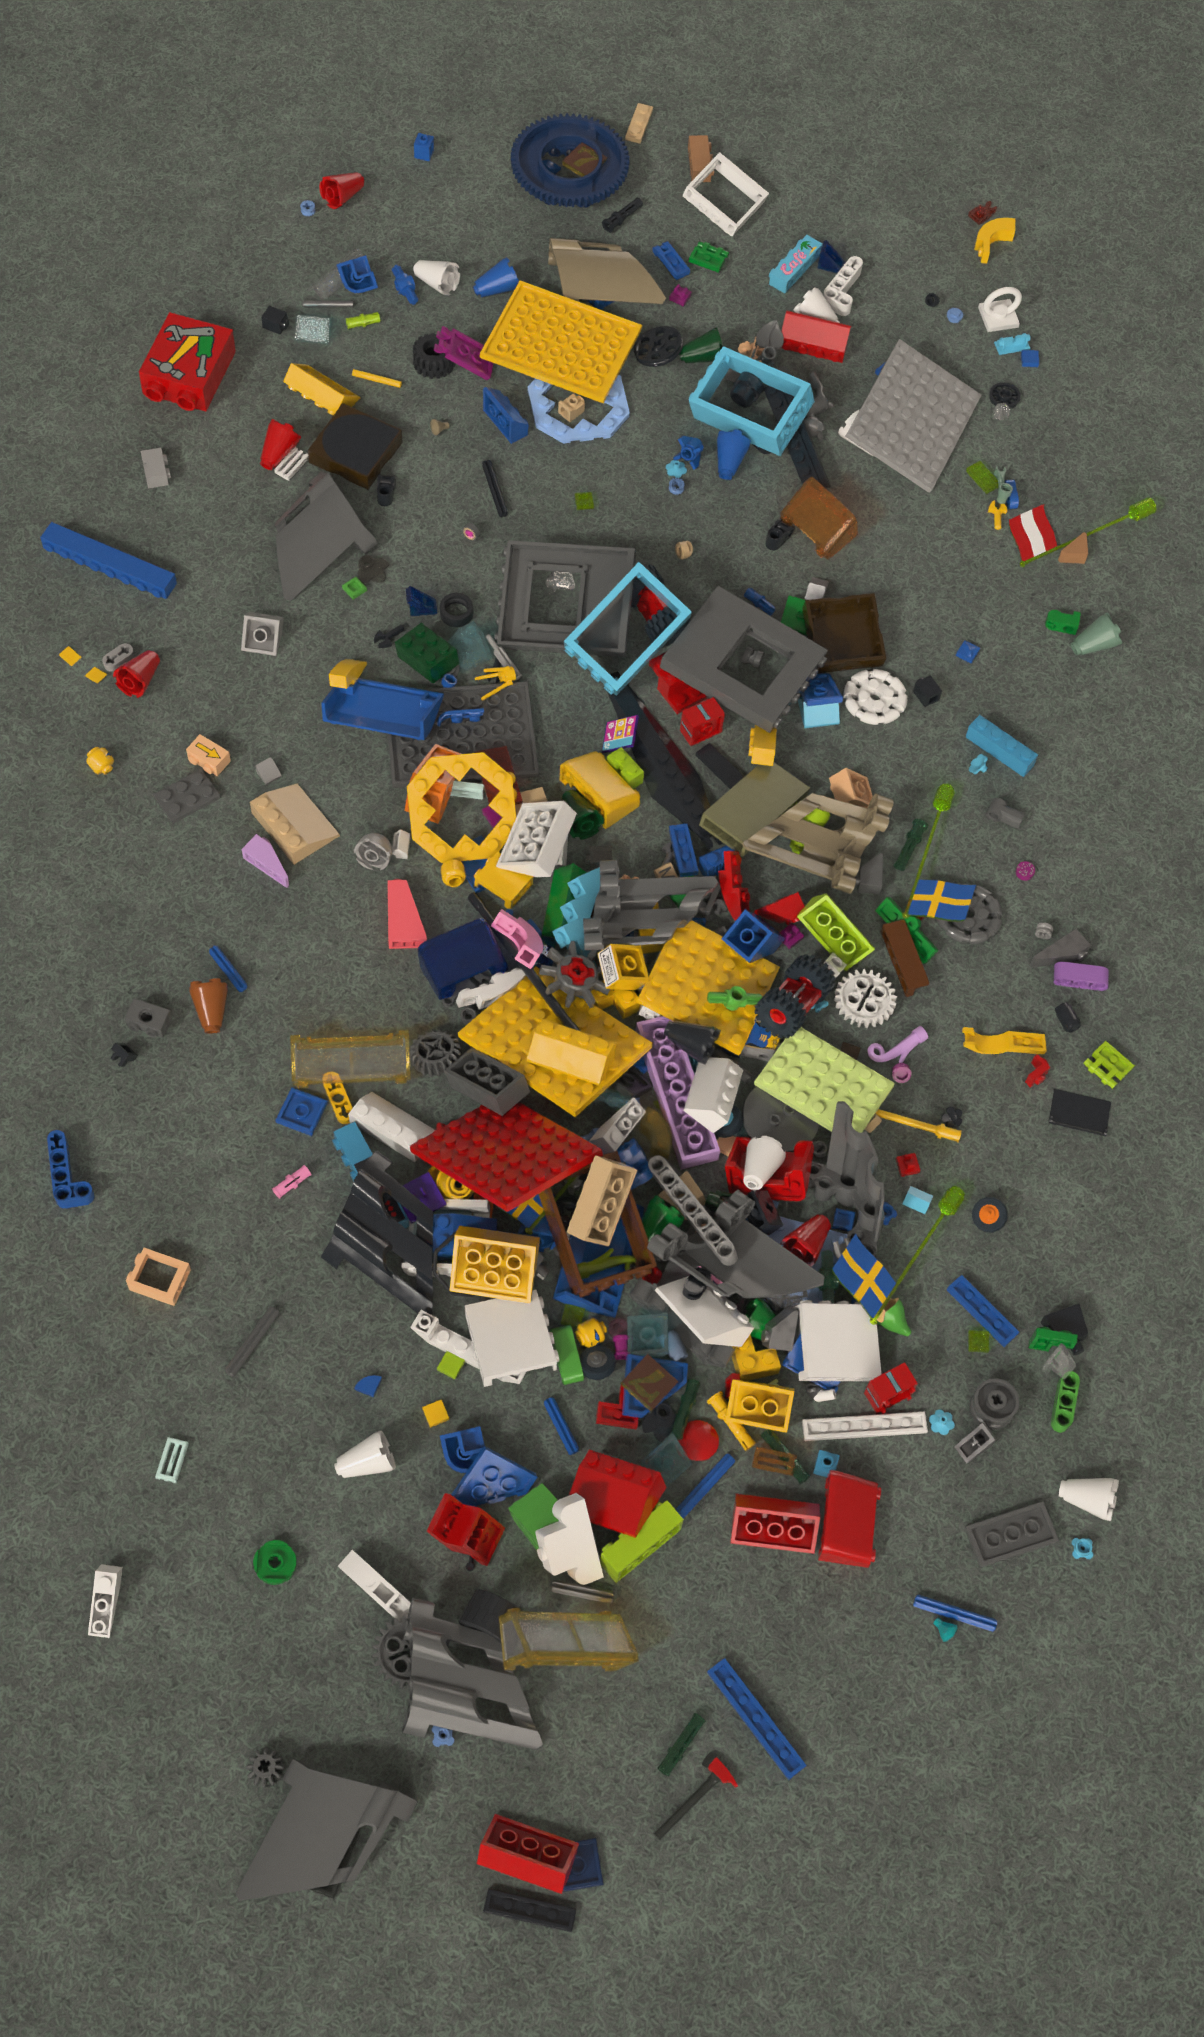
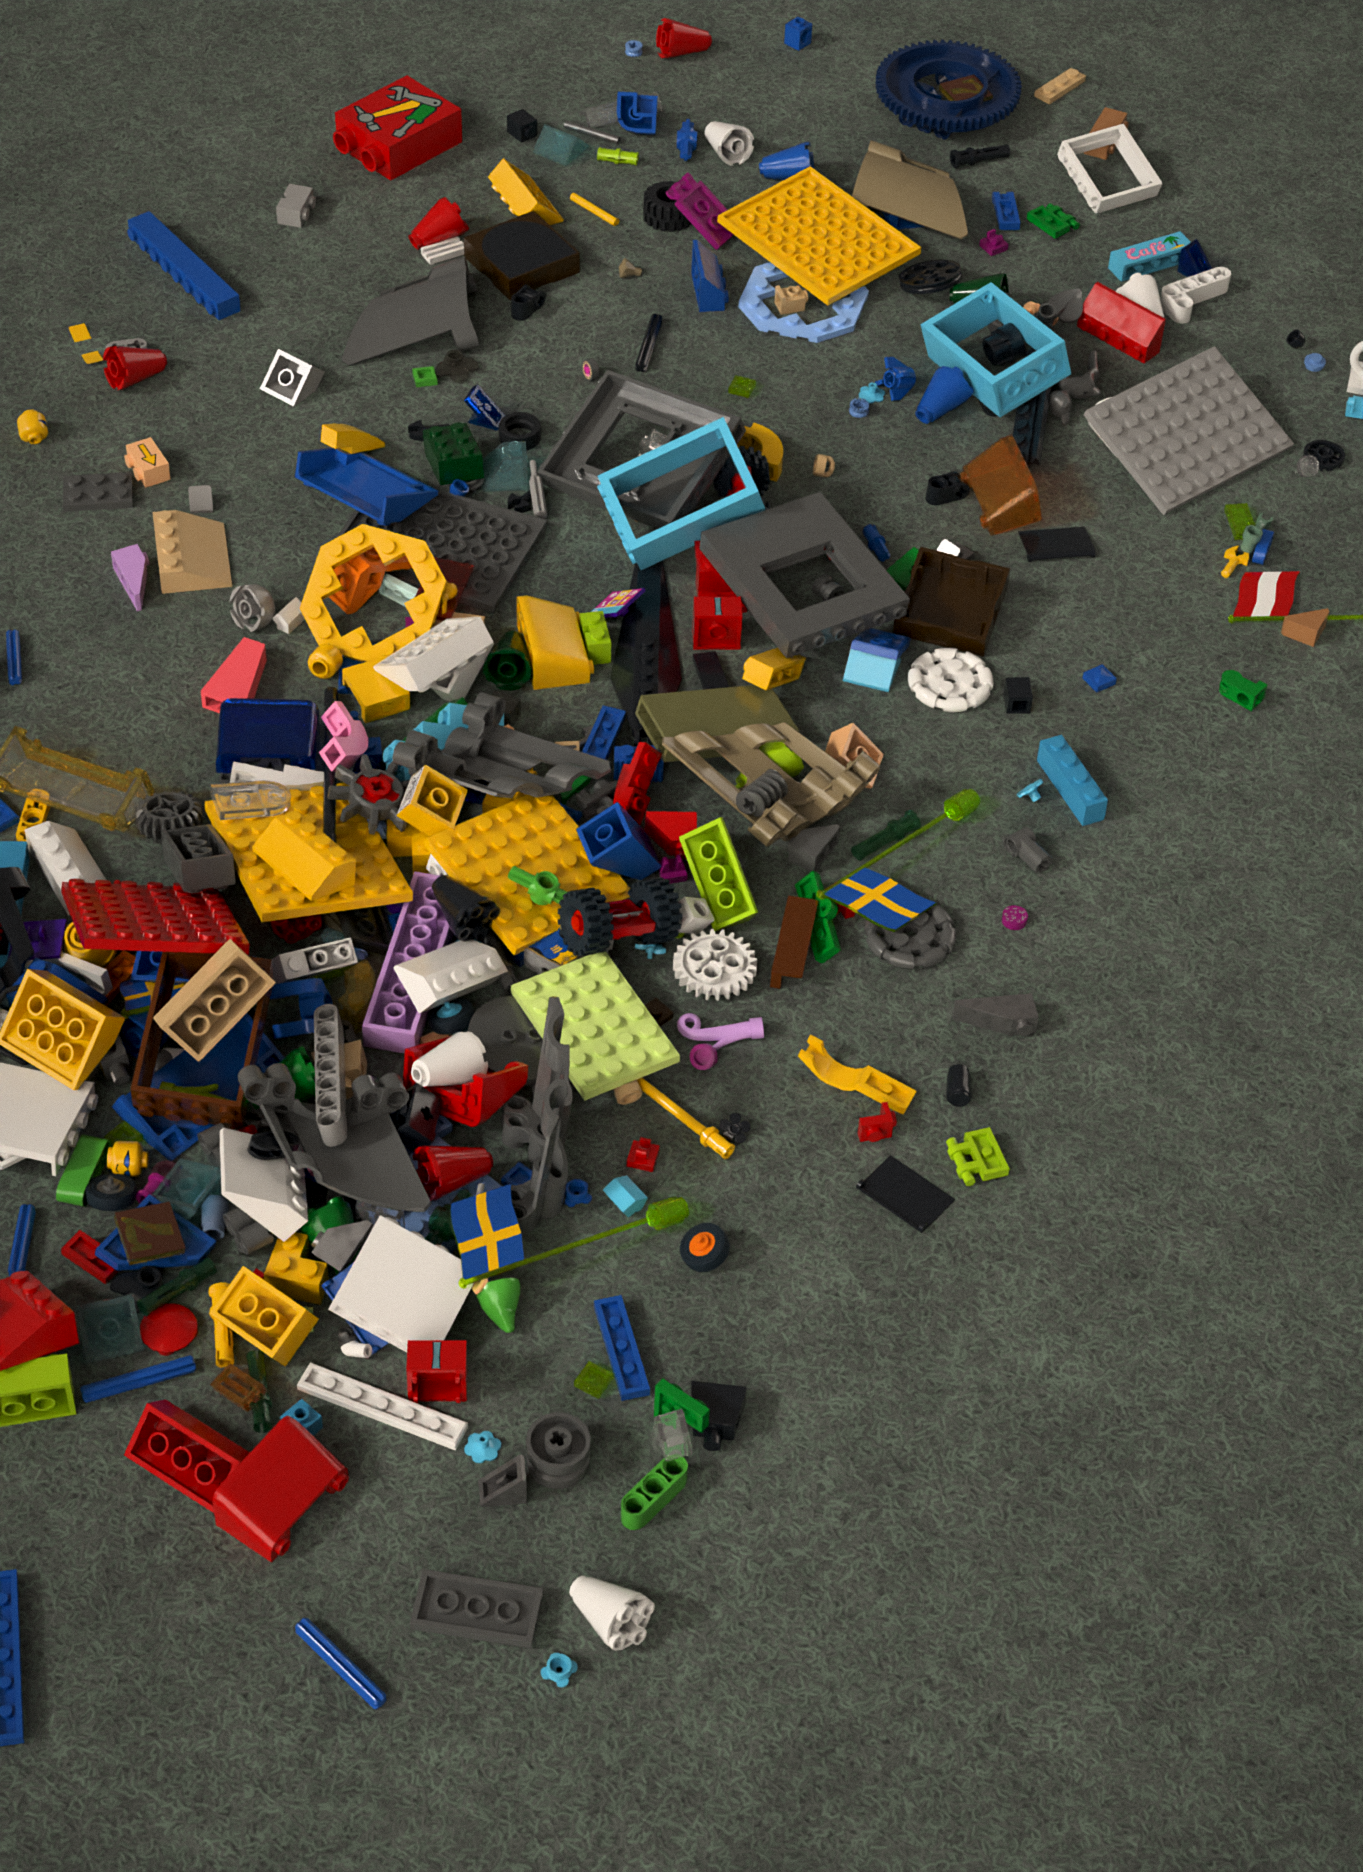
camera: 30 degrees right, 15 degrees down
(457, 715) = (439, 521): blue piece -> none
(490, 1018) = (250, 799): none -> clear tile
(505, 674) = (525, 503): yellow plant -> none
(644, 551) = (768, 443): none -> yellow arch
(827, 855) = (762, 793): none -> dark grey piece
(875, 548) = (1056, 543): none -> black piece
(945, 1629) = (314, 1676): teal rock -> none
(1044, 931) = (992, 984): light grey bush -> none
(1081, 975) = (1008, 1049): medium lavender beam -> none
(1098, 636) = (1272, 716): sand green cone -> none

